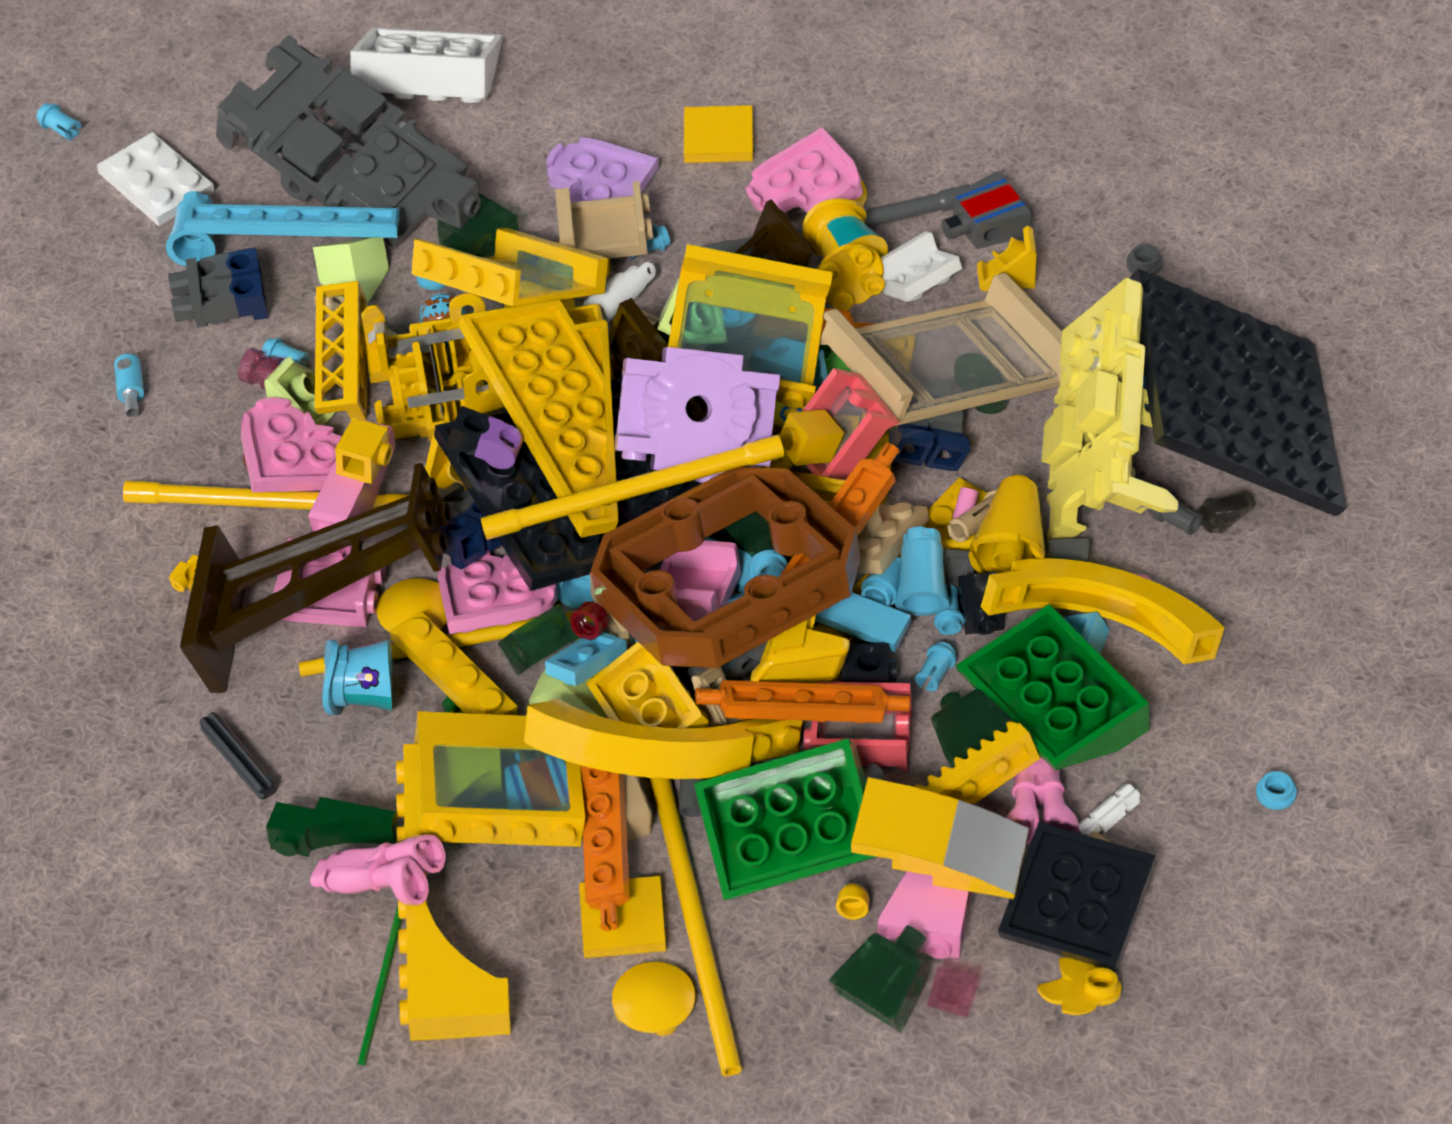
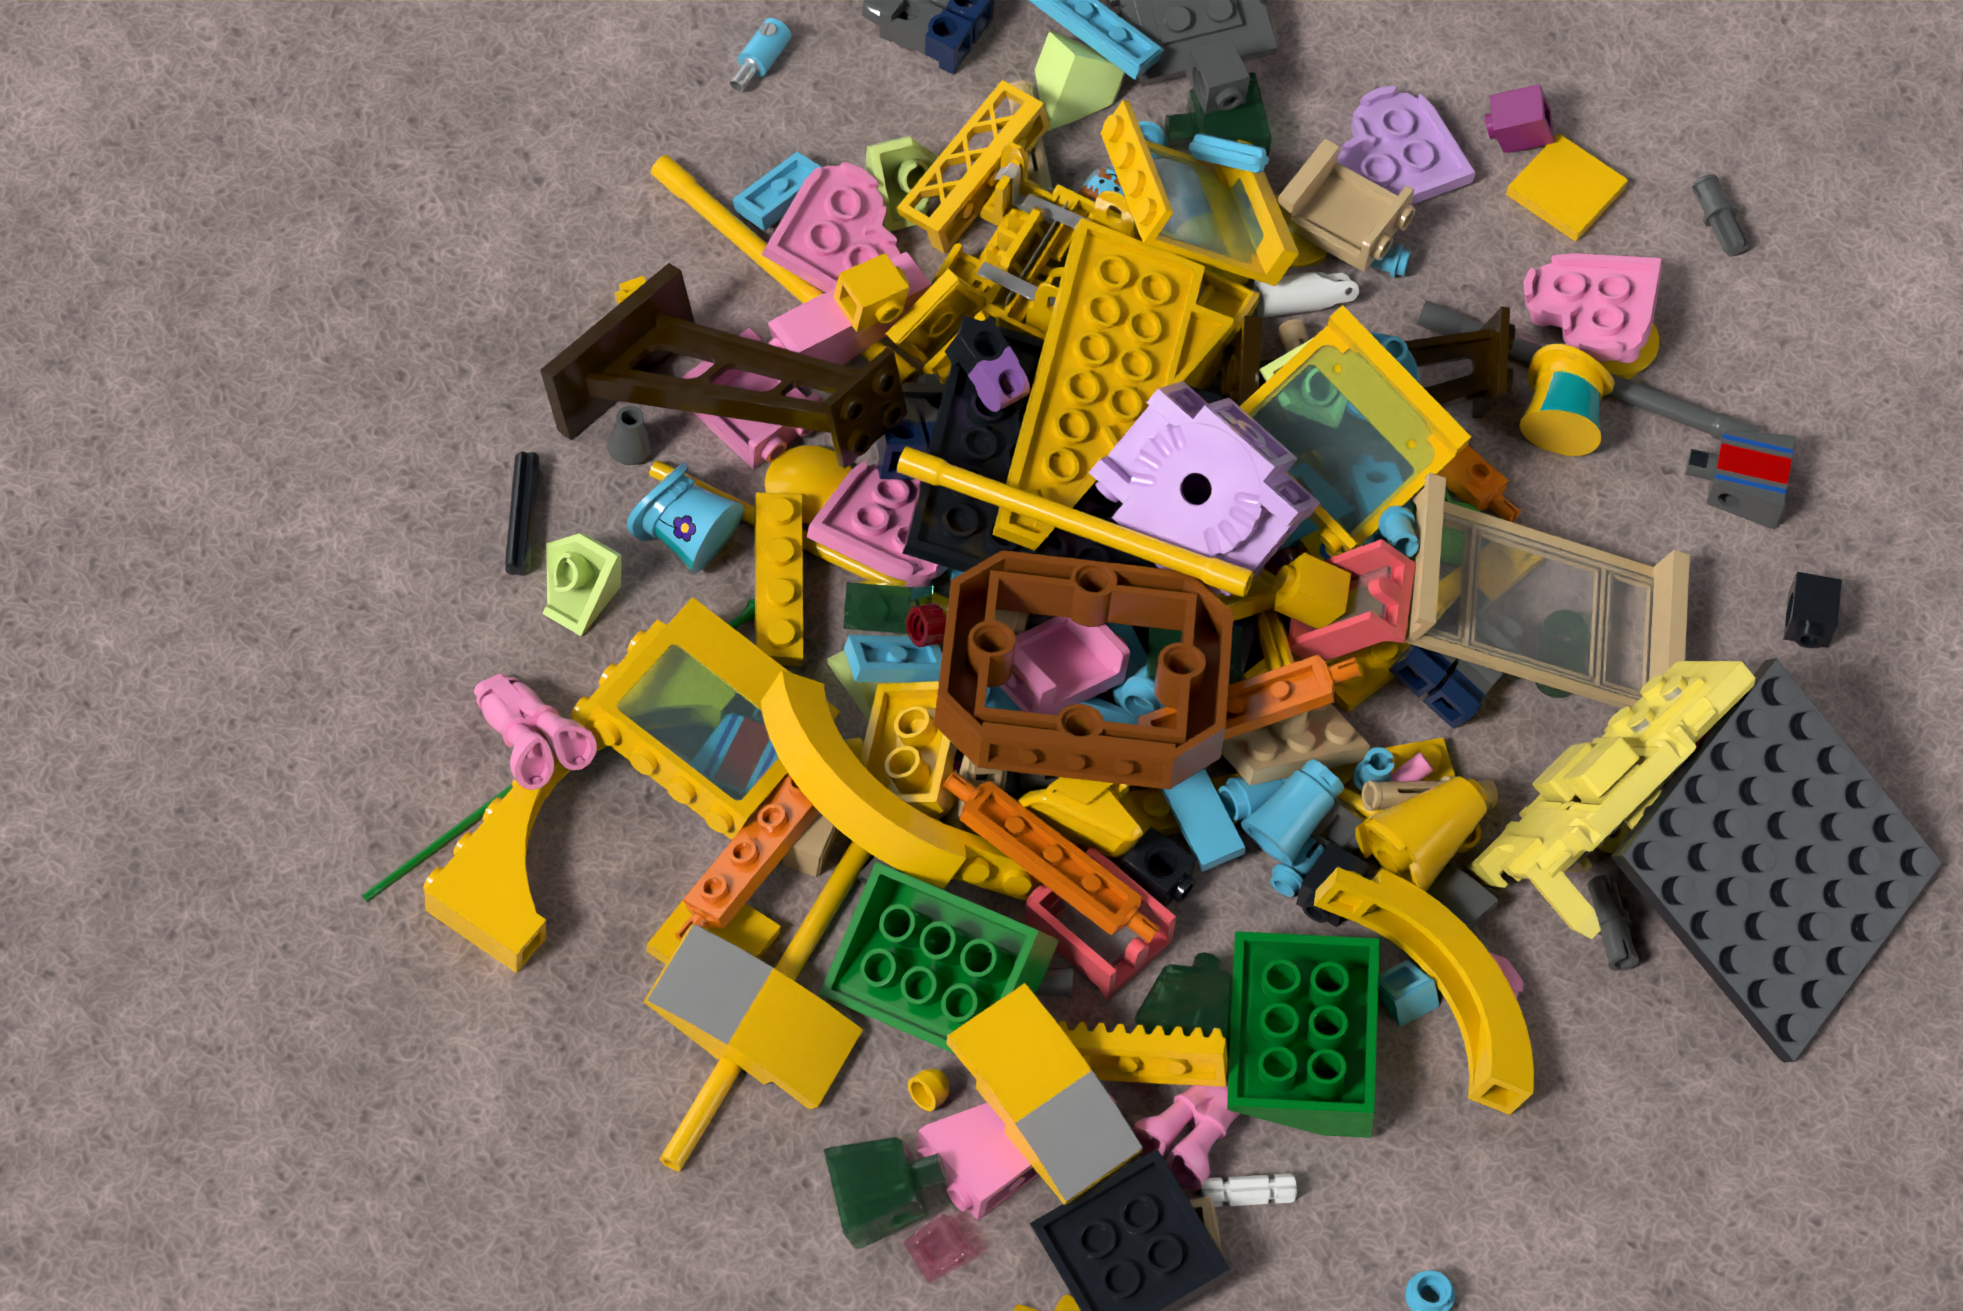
camera: 30 degrees right, 10 degrees up
(222, 454) = (773, 193): none -> medium azure plate
(257, 367) = (889, 121): clear pink wheel -> none
(268, 658) = (629, 438): none -> dark grey cone
(278, 348) = (924, 121): medium azure pin -> none
(316, 763) = (580, 580): none -> yellowish green slope
(331, 823) = (535, 643): dark green slope -> none
(408, 445) = (935, 317): none -> yellow tile
(501, 237) = (1229, 153): none -> medium azure axle
(653, 998) = (658, 1048): yellow dish -> none
(656, 111) = (1520, 119): none -> magenta brick
(699, 937) = (753, 1016): none -> slope
(825, 89) = (1720, 214): none -> dark grey axle
(827, 358) = (1398, 527): none -> medium azure pin
(855, 275) = (1534, 443): yellow dish -> none
(917, 268) = (1615, 481): white bracket -> none
(939, 659) = (1233, 915): medium azure pin -> none
(944, 514) = (1374, 767): none -> medium azure pin
(1016, 261) = (1717, 551): yellow slope -> none
(1101, 259) = (1812, 610): none -> black brick
(1145, 258) = (1862, 633): dark grey plate -> none
(1225, 510) = (1668, 972): clear smoke cone -> none

